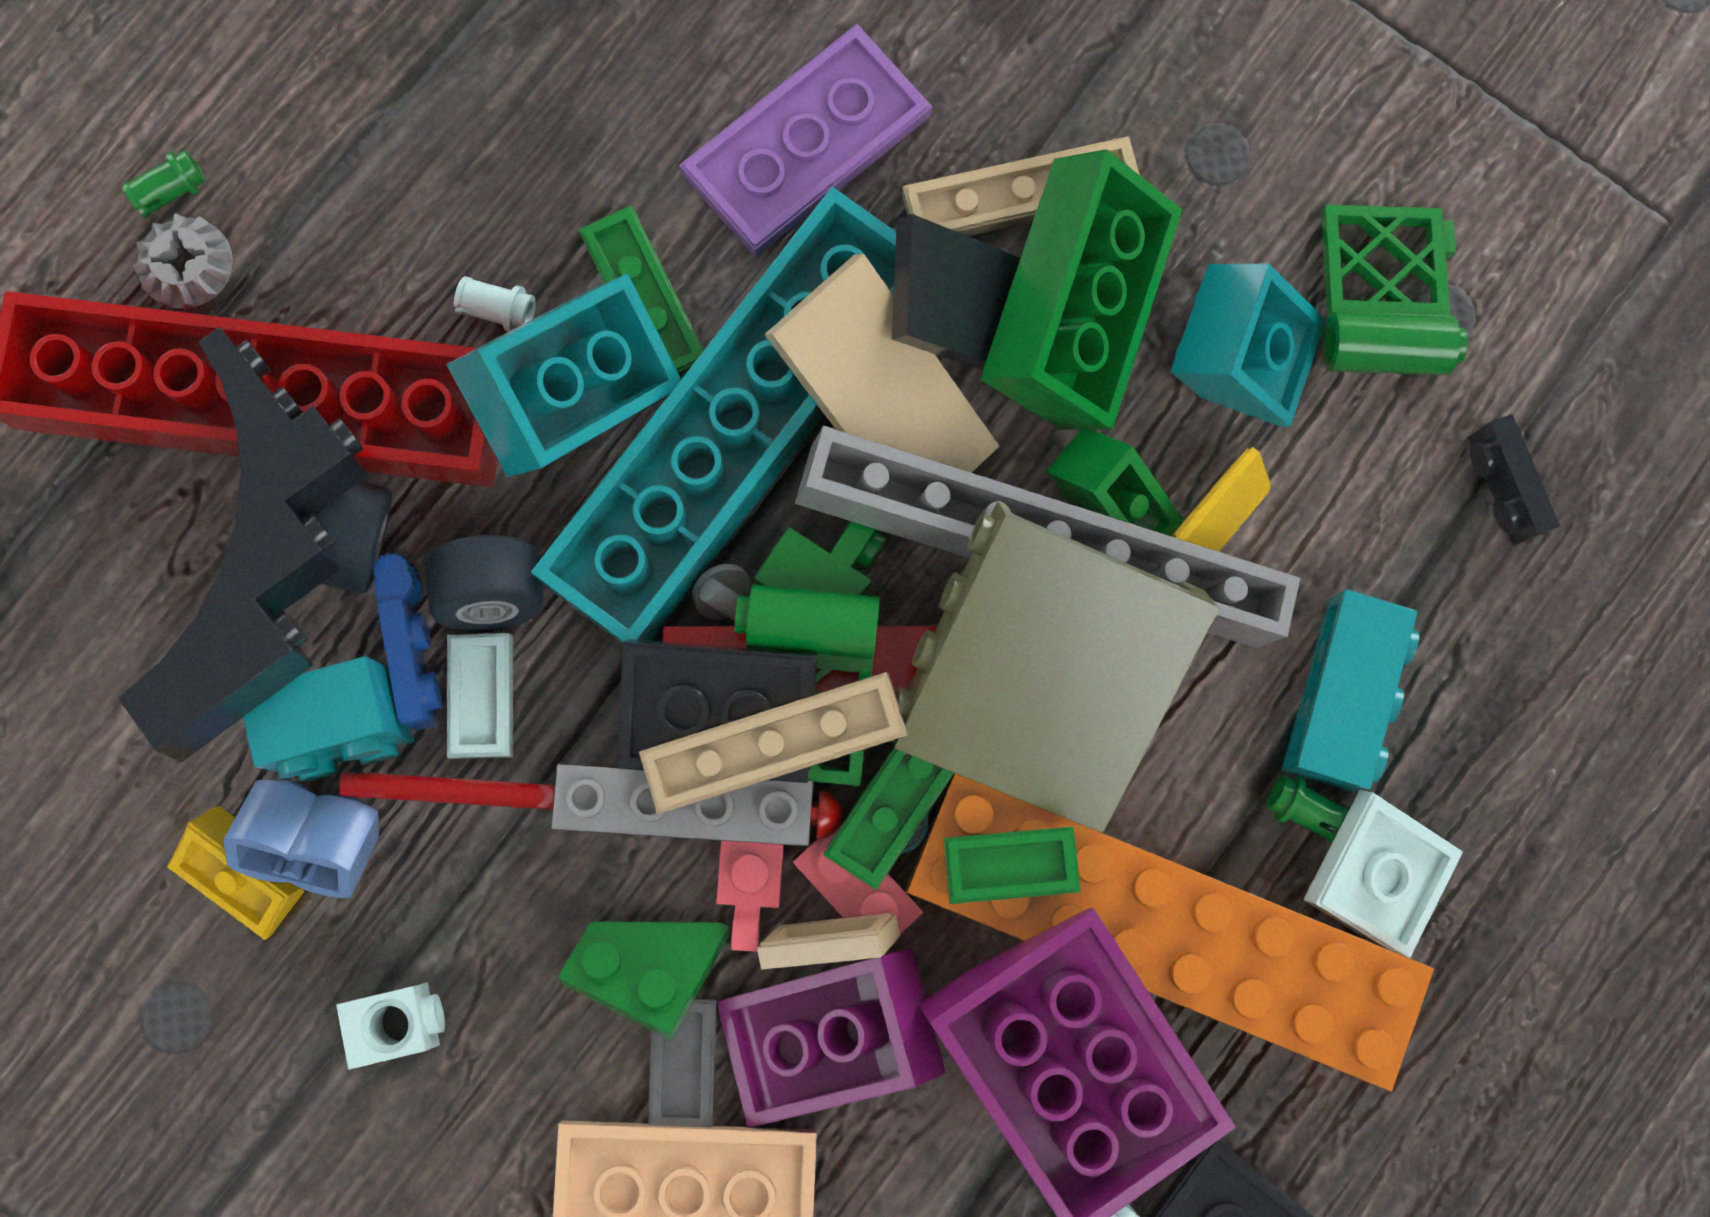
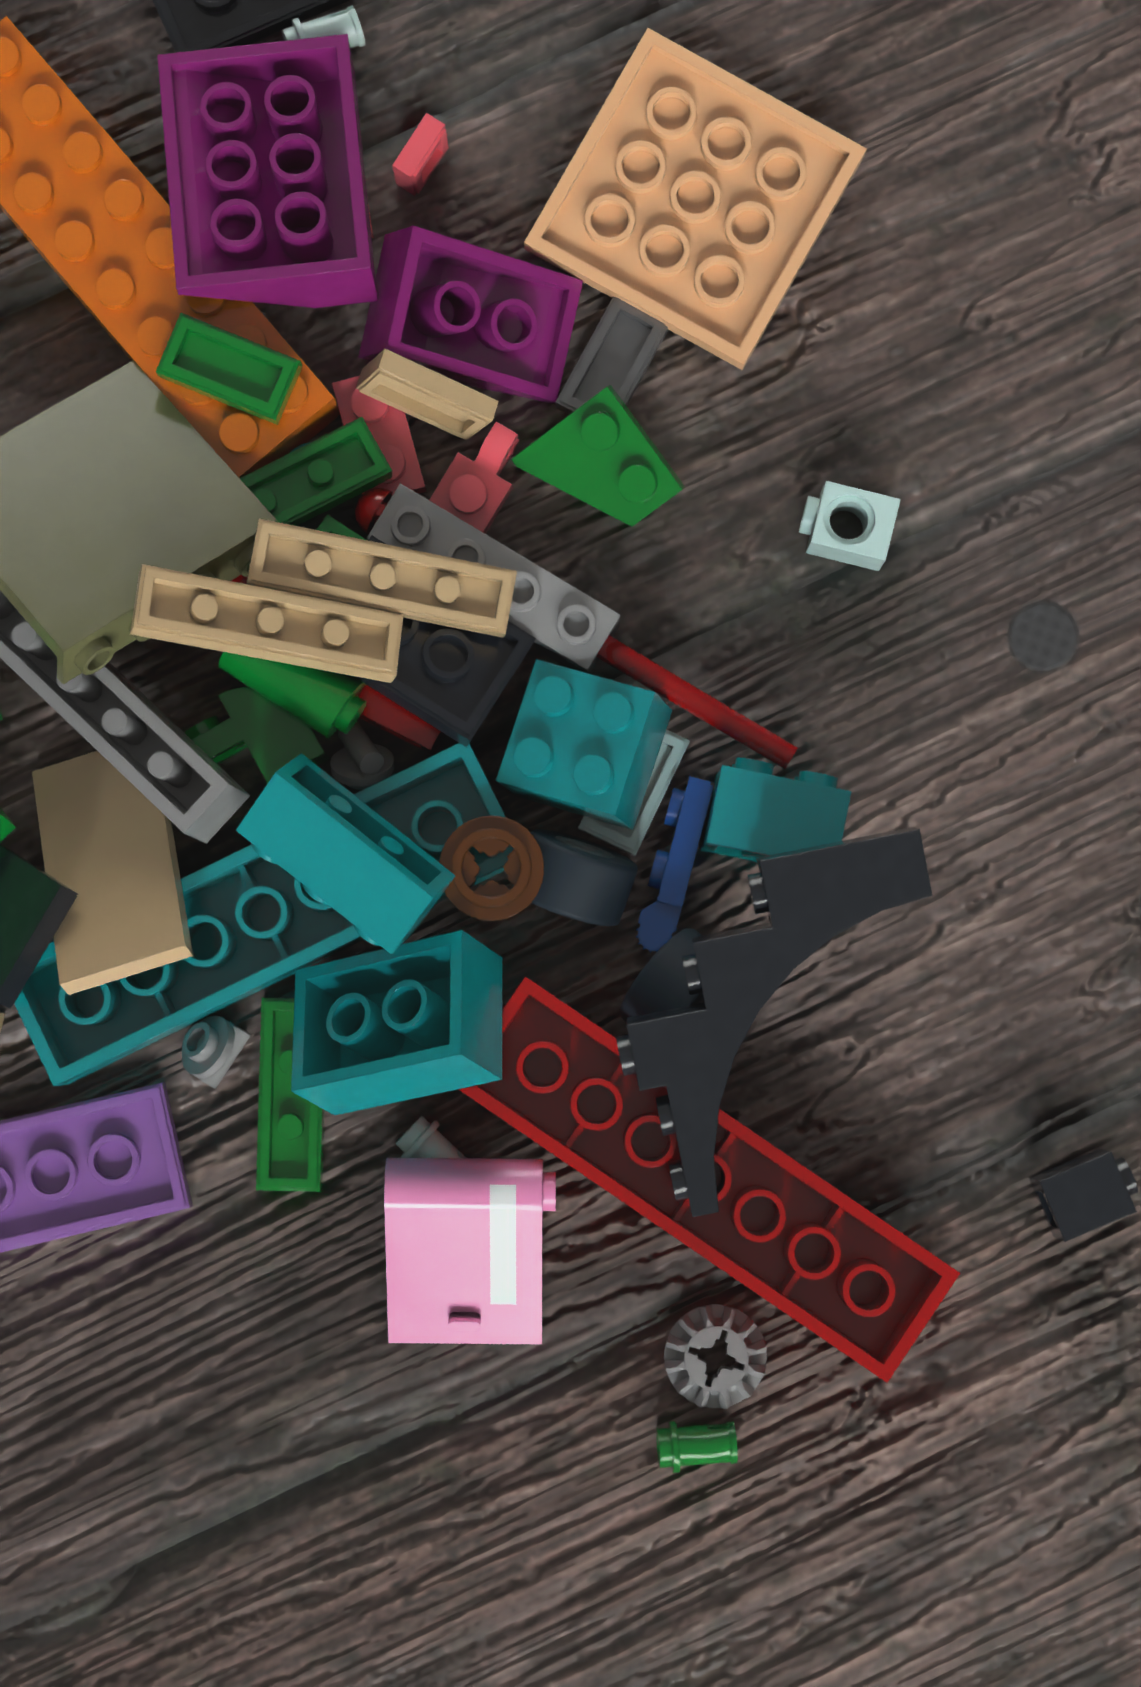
camera: 145 degrees left, 5 degrees up
(203, 864) = (926, 735): yellow slope -> none
(302, 838) = (849, 727): medium blue brick -> none
(429, 241) = (465, 1249): none -> bright pink door
(531, 699) = (584, 744): none -> teal brick
(535, 517) = (493, 836): none -> reddish brown gear
(676, 485) = (344, 853): none -> teal brick
(724, 294) = (212, 1048): none -> light grey plate
(848, 642) = (266, 624): none -> tan tile
(952, 1167) = (421, 155): none -> coral tile

